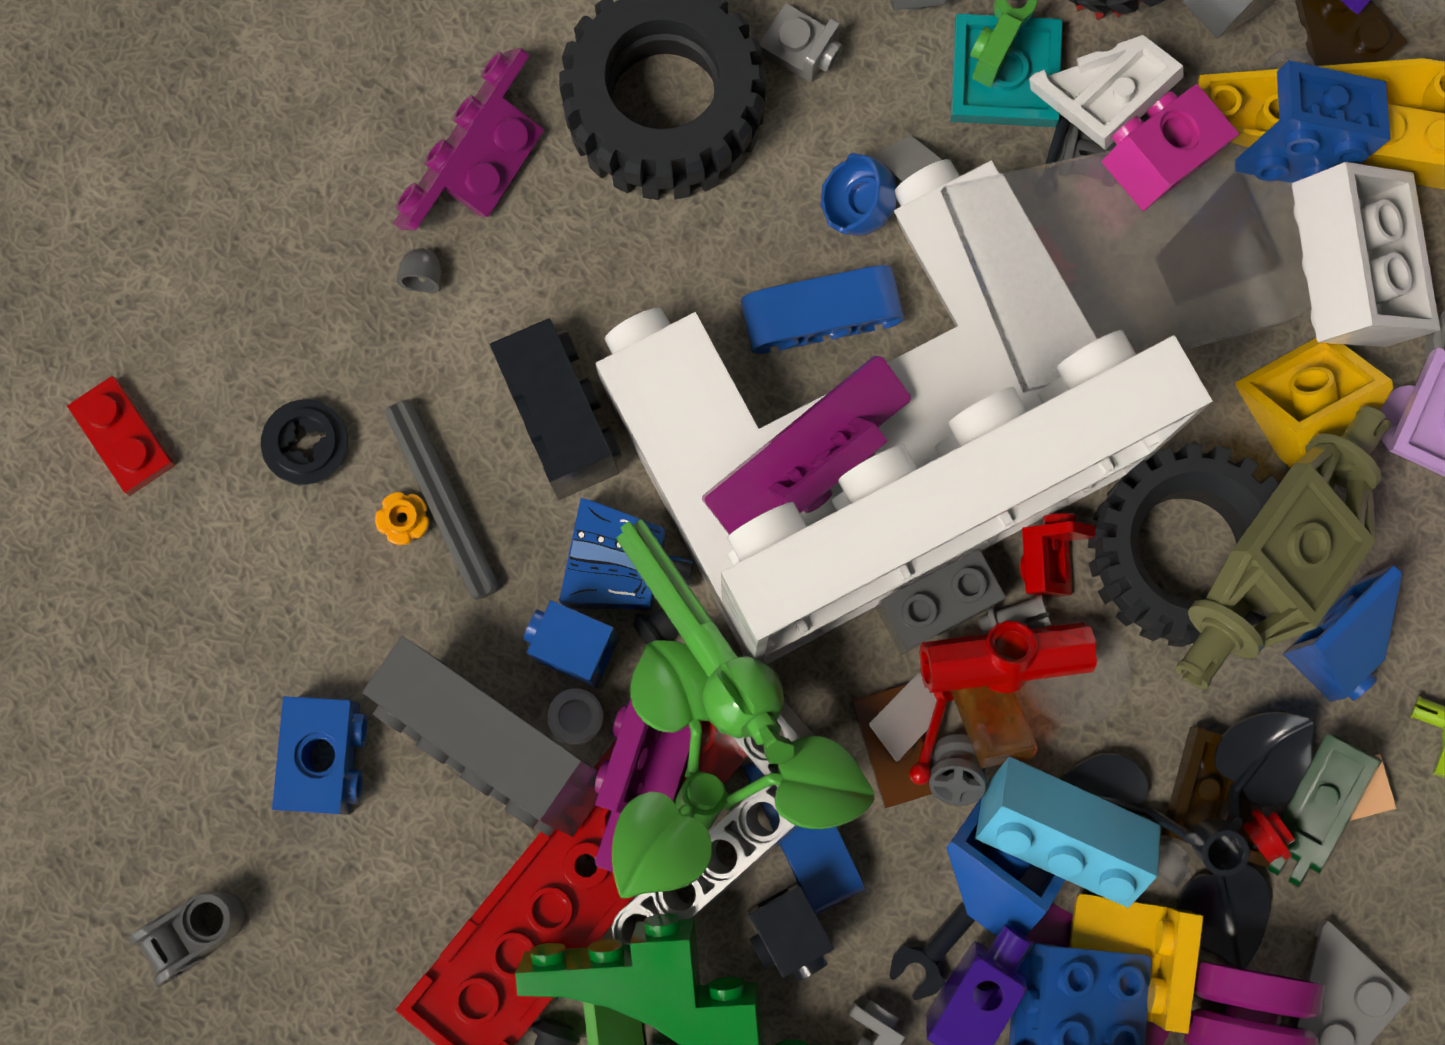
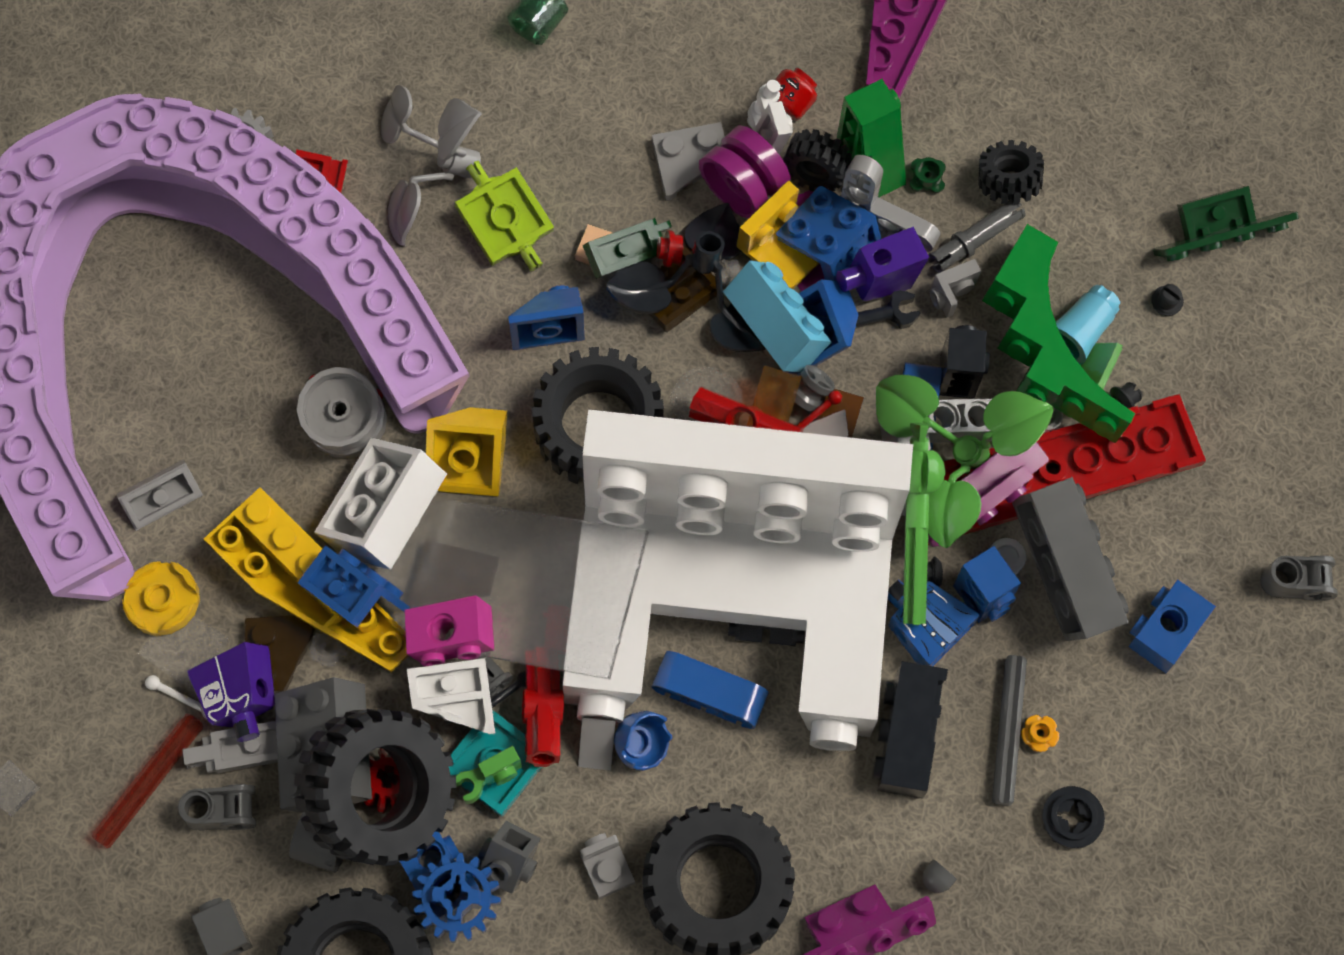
camera: 150 degrees left, 10 degrees down
(120, 435) = (1185, 897): red plate -> none
(812, 450) = (789, 575): magenta bracket -> none
(983, 128) = (542, 715): none -> red piece
(1293, 552) = (556, 360): olive plate -> none

